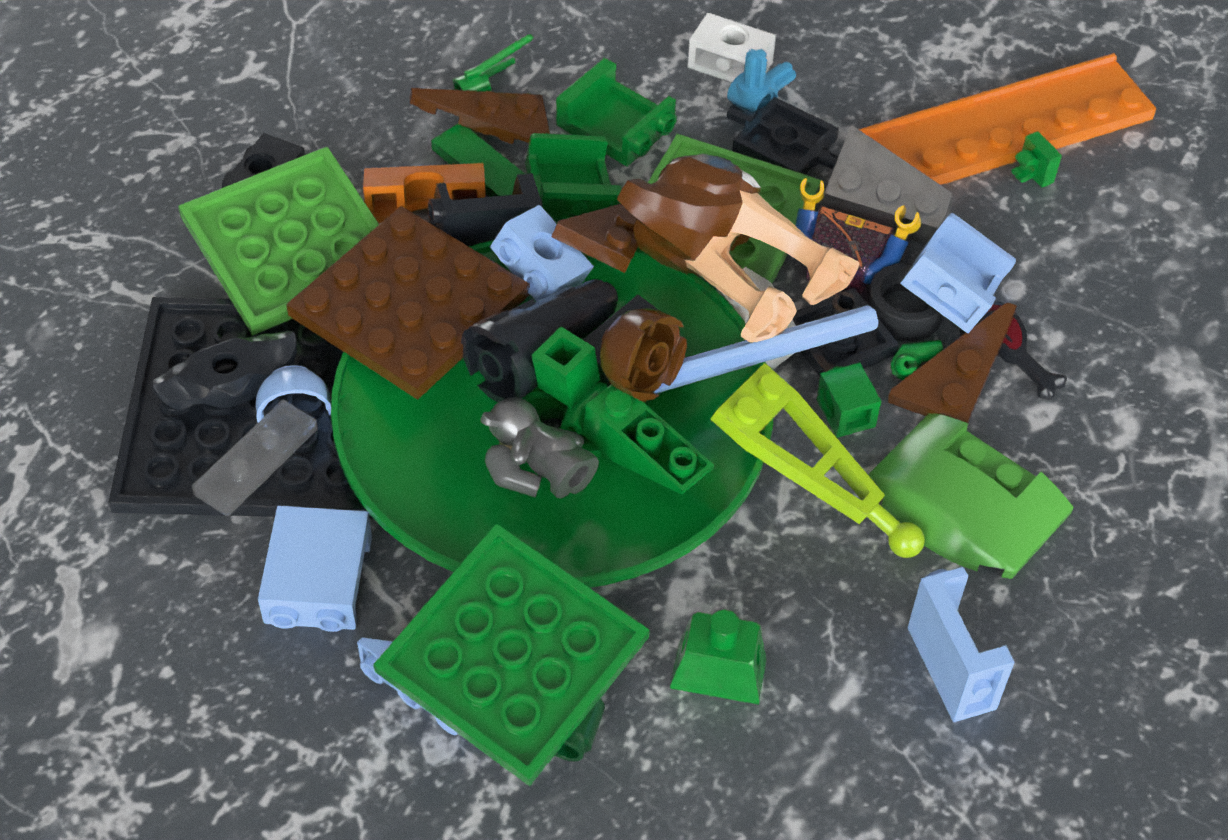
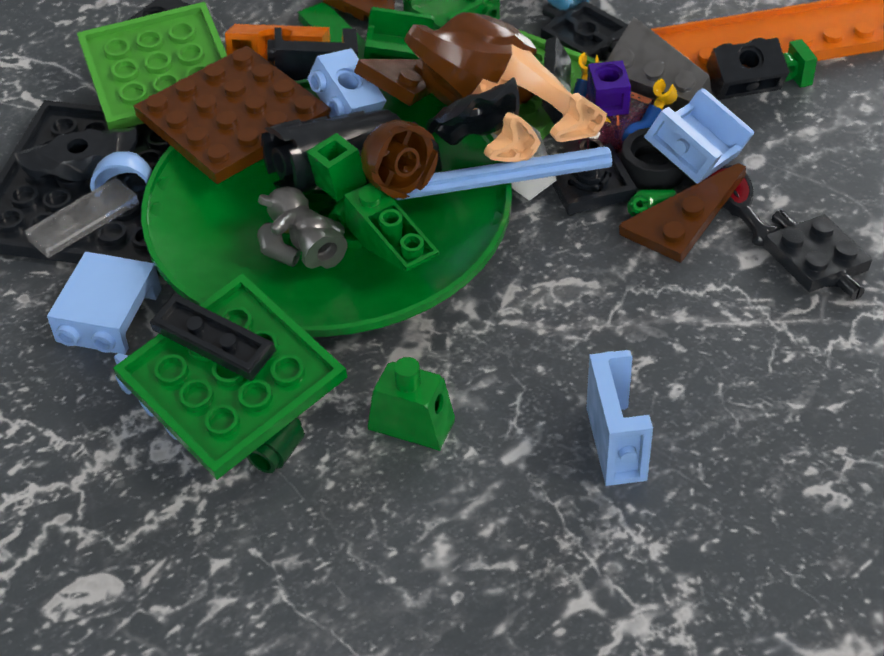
camera: 15 degrees right, 5 degrees down
(485, 611) = (213, 336): none -> black tile
(718, 284) = (460, 119): none -> black piece
(752, 410) = (503, 206): lime plate -> none
(774, 194) = (559, 64): none -> black tile
(844, 221) = (609, 87): none -> dark purple brick
(848, 399) = (581, 226): green brick -> none
(969, 497) = (668, 313): bright green slope -> none
(1001, 159) = (732, 79): none -> black brick
(1113, 403) = (817, 253): none -> black plate

